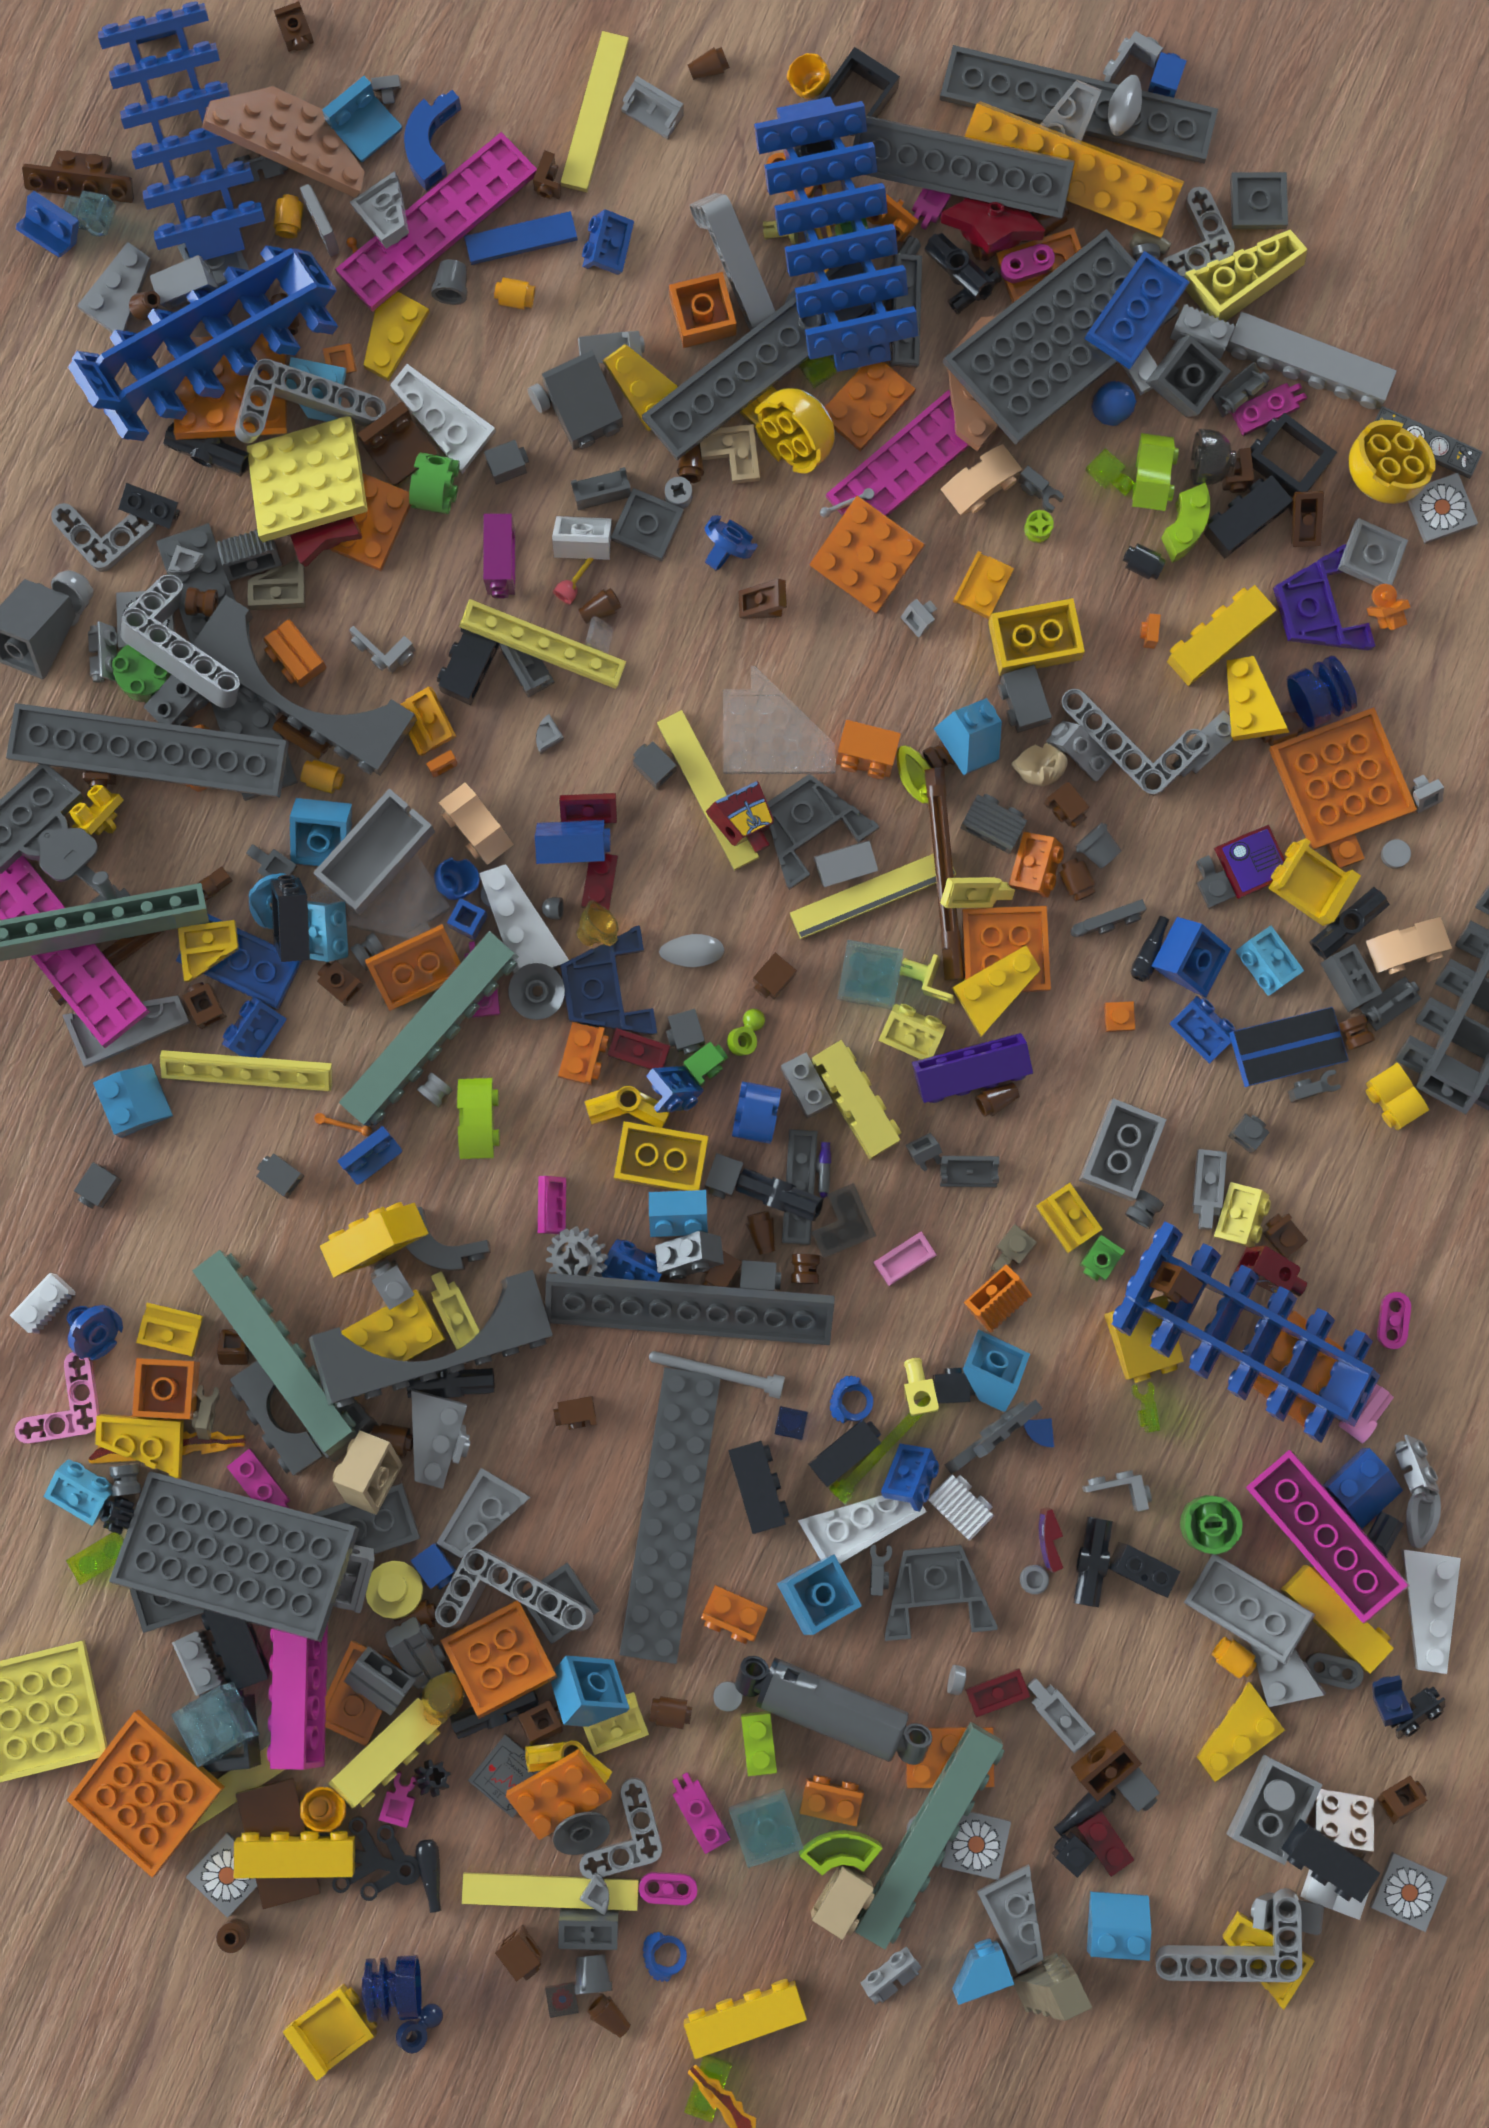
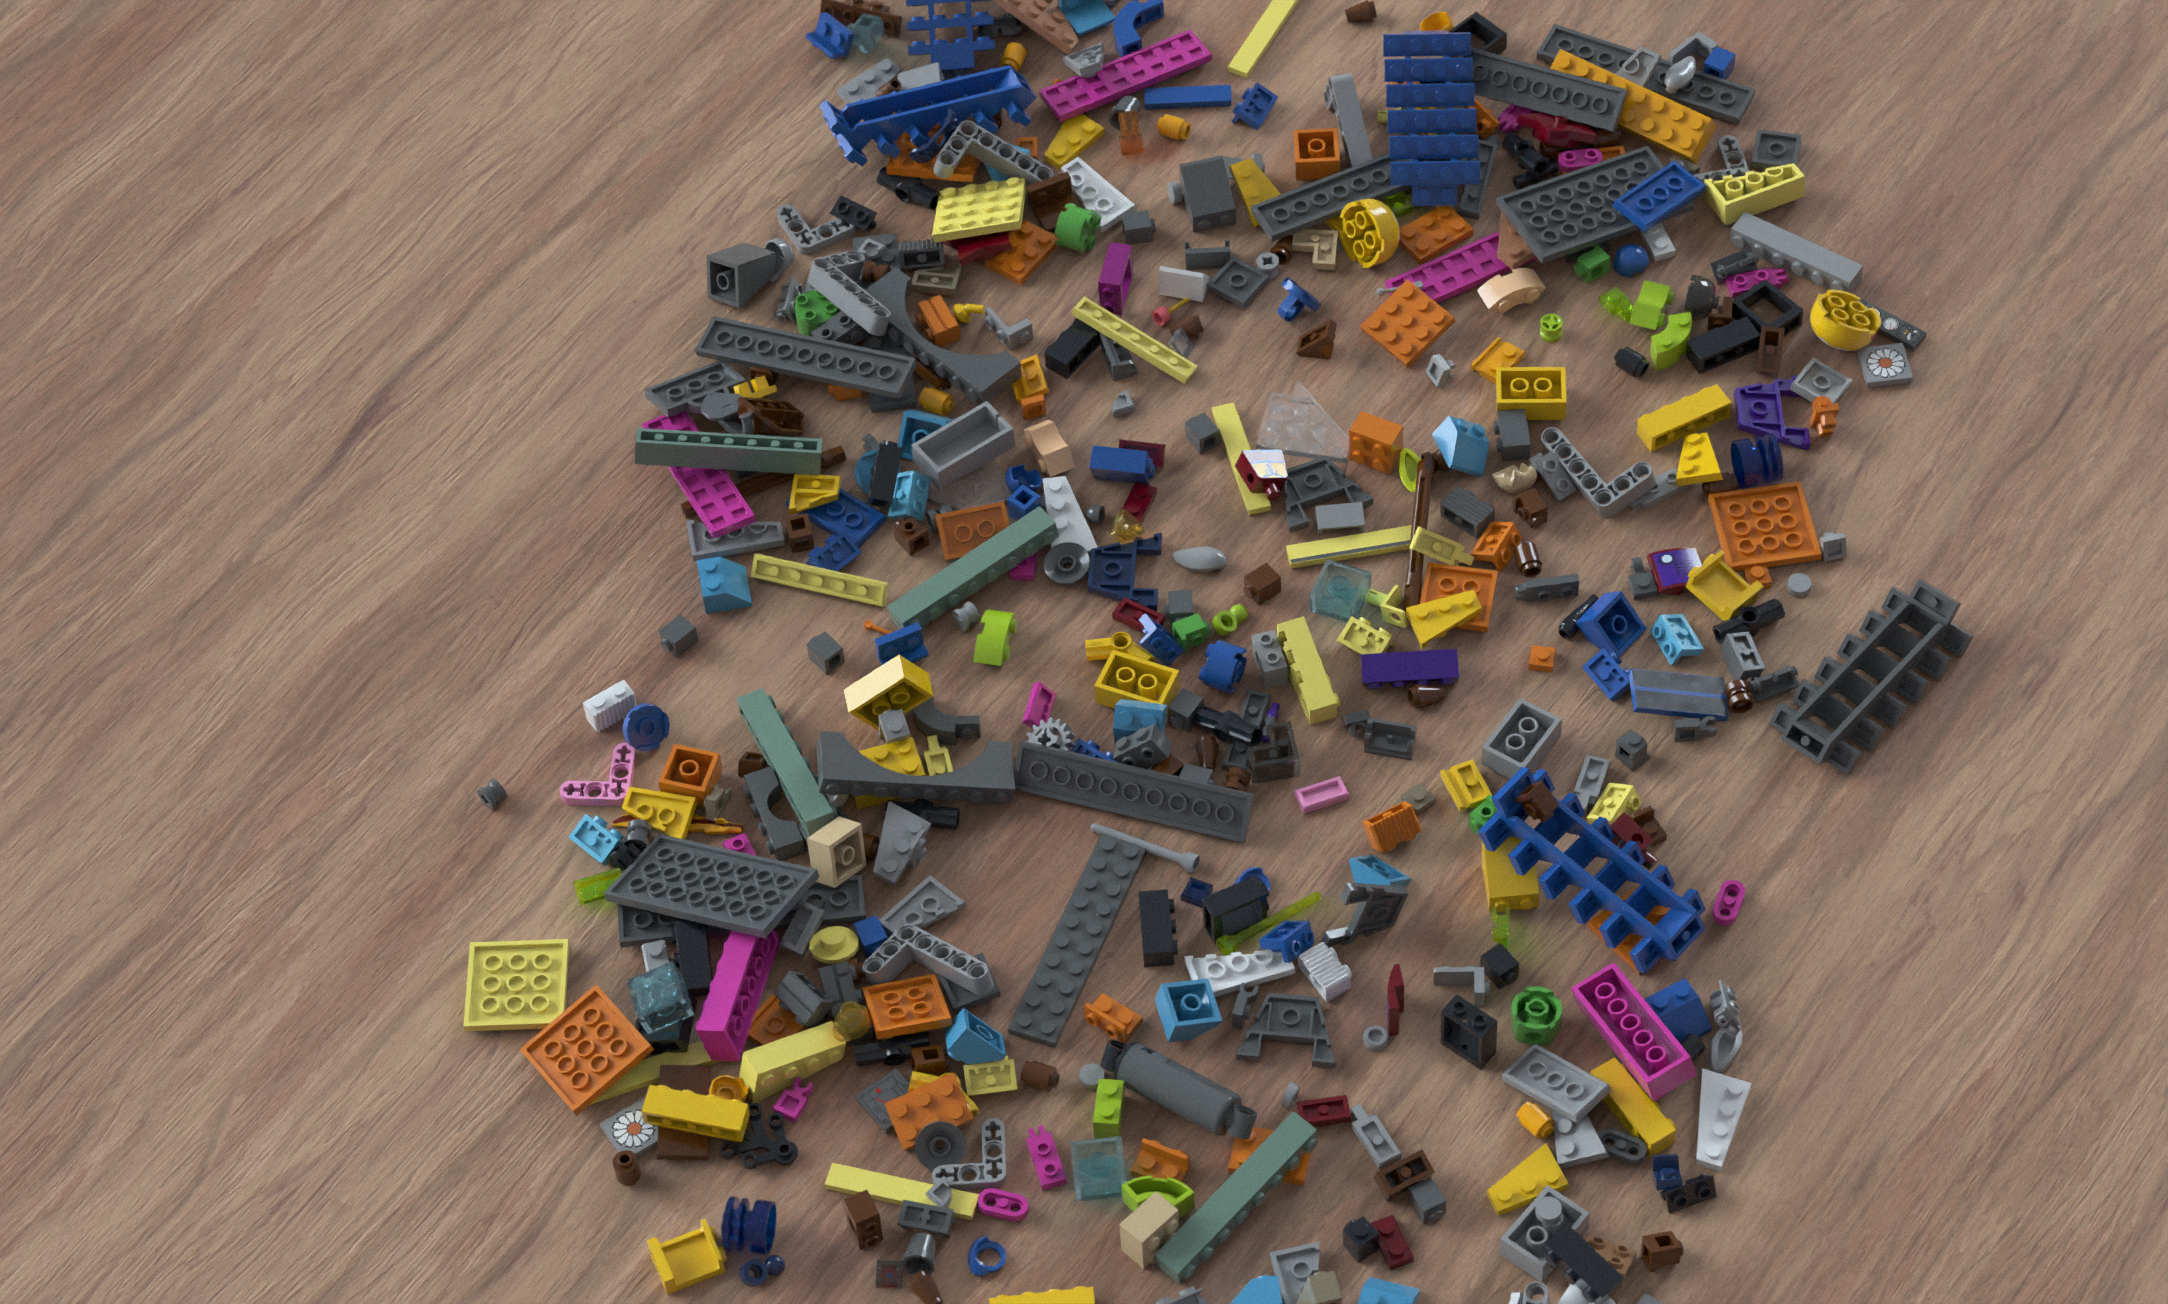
camera: 20 degrees right, 30 degrees down
(132, 849) = (772, 416): none -> reddish brown wedge
(170, 1329) = (706, 737): yellow plate -> none
(243, 369) = (931, 149): none -> dark blue piece
(320, 220) = (1036, 59): light grey tile -> none
(322, 631) = (963, 312): none -> yellow plate
(423, 1781) = (826, 1085): black gear -> none
(429, 1867) = (805, 1152): black piece -> none
(465, 322) = (1131, 138): none -> clear orange piece
(545, 176) = (1217, 61): reddish brown bracket -> none
(575, 1413) = (1019, 850): reddish brown brick -> none
(582, 1053) = (1092, 613): orange bracket -> none
(652, 107) = (1311, 31): light grey hinge -> none
(919, 1388) = (1309, 878): light yellow bracket -> none
(952, 1386) = (1334, 884): black brick -> none
(978, 1846) = (1277, 1222): tile -> none
(1035, 484) = (1555, 300): dark grey plate -> none
(1040, 1431) = (1406, 932): blue tile -> none
(1070, 420) = (1592, 264): none -> bright green brick
(1083, 1810) = (1390, 1206): black piece -> none
(1093, 1562) = (1427, 1032): black piece -> none
(1099, 846) = (1550, 538): dark grey piece -> none
(1150, 630) = (1626, 406): orange plate -> none
(1156, 1461) = (1500, 966): none -> black brick
(1188, 376) = (1692, 245): dark grey brick -> none
(1205, 329) = (1710, 223): light grey brick -> none
(1372, 1411) = (1691, 962): bright pink piece -> none
(1396, 1096) = (1764, 746): yellow brick -> none
(1409, 945) = (1795, 642): light nougat brick -> none

